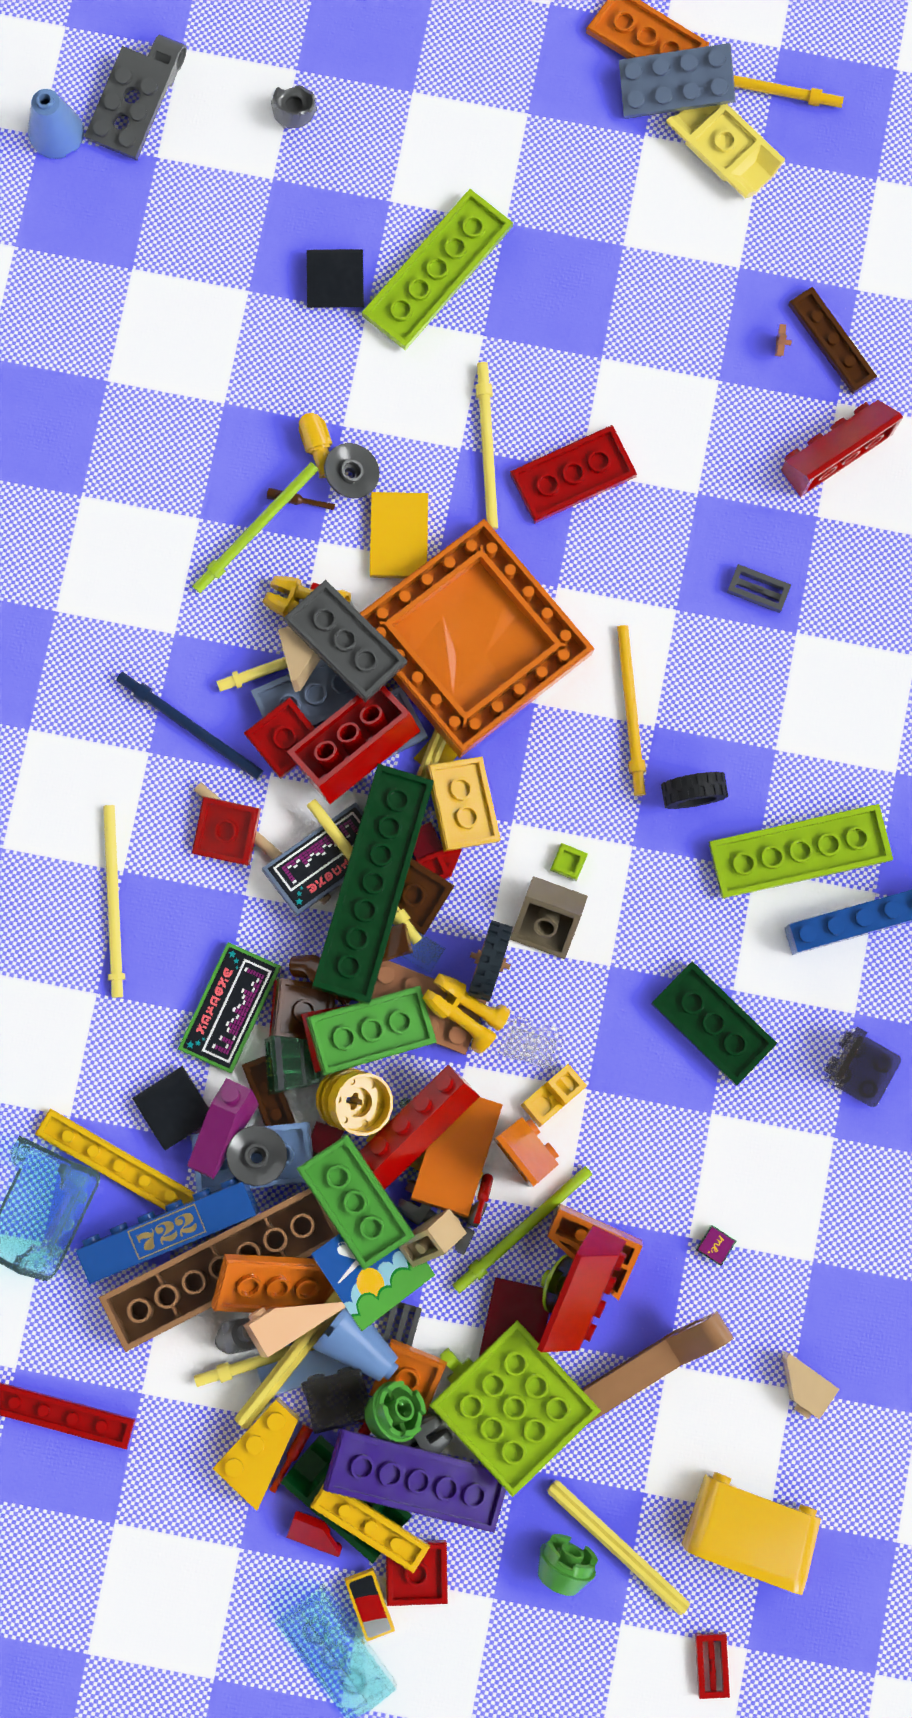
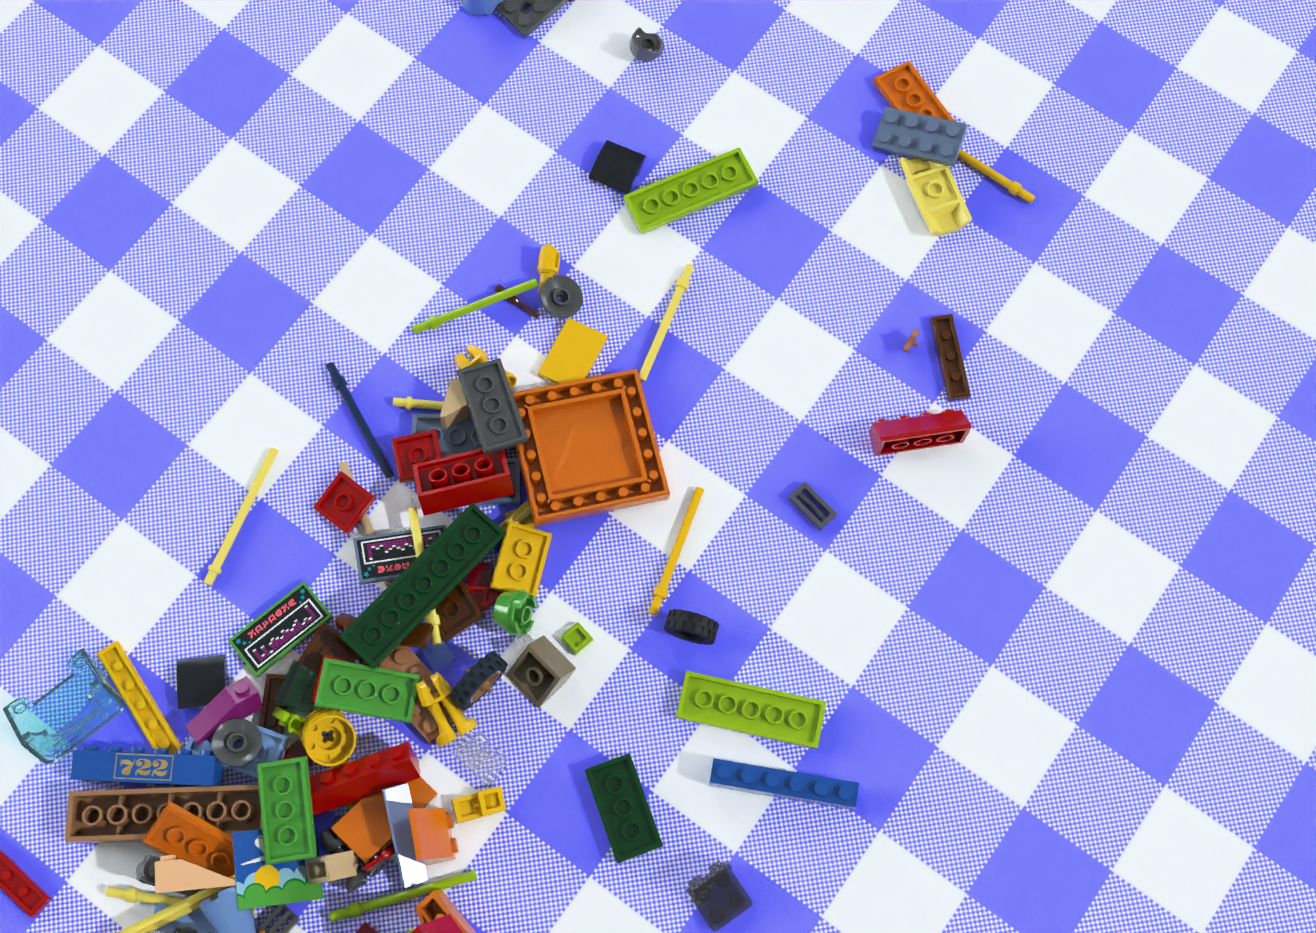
camera: 30 degrees right, 10 degrees down
(300, 1103) = (289, 720): none -> lime plate
(487, 865) = (514, 612): none -> bright green cone
(493, 1165) = (397, 803): none -> light blue tile
(573, 474) = (717, 368): red tile -> none

